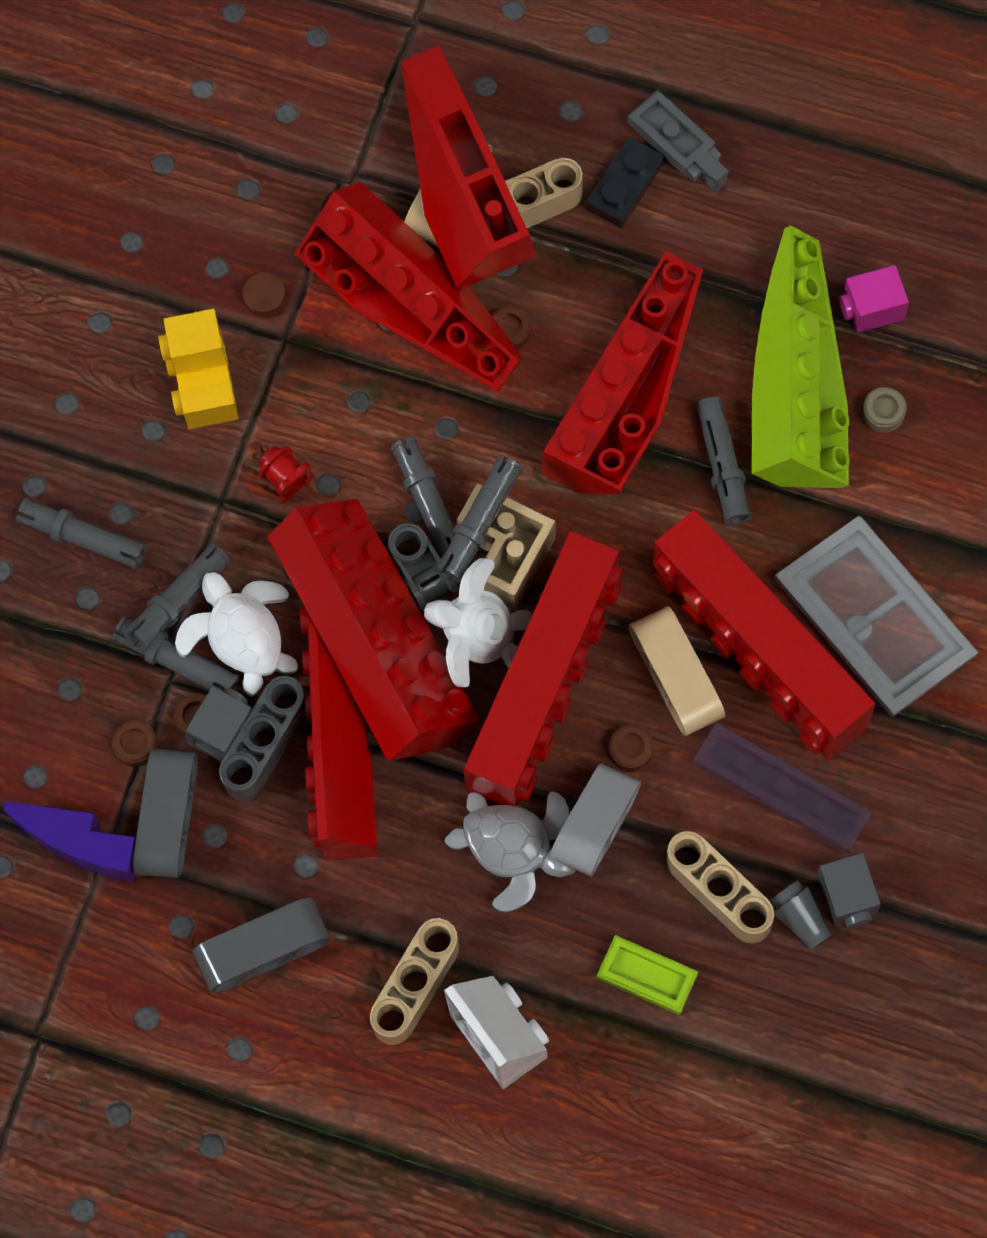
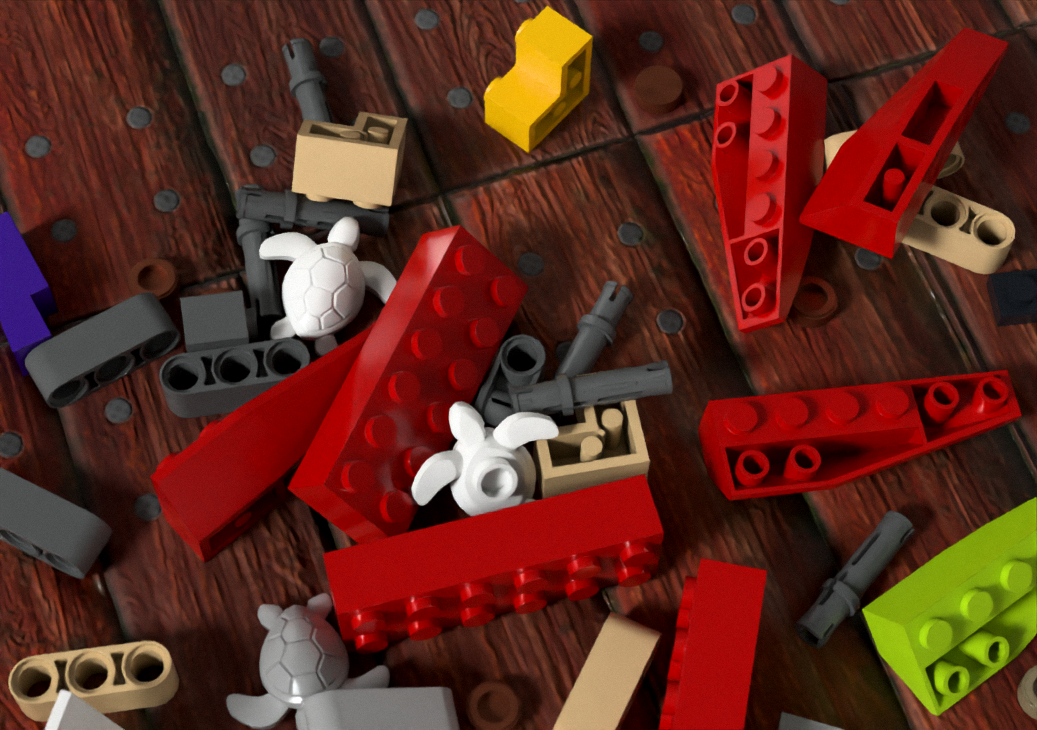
camera: 45 degrees right, 10 degrees down
(169, 539) = (350, 161): none -> tan brick
(284, 472) = (506, 217): red brick -> none

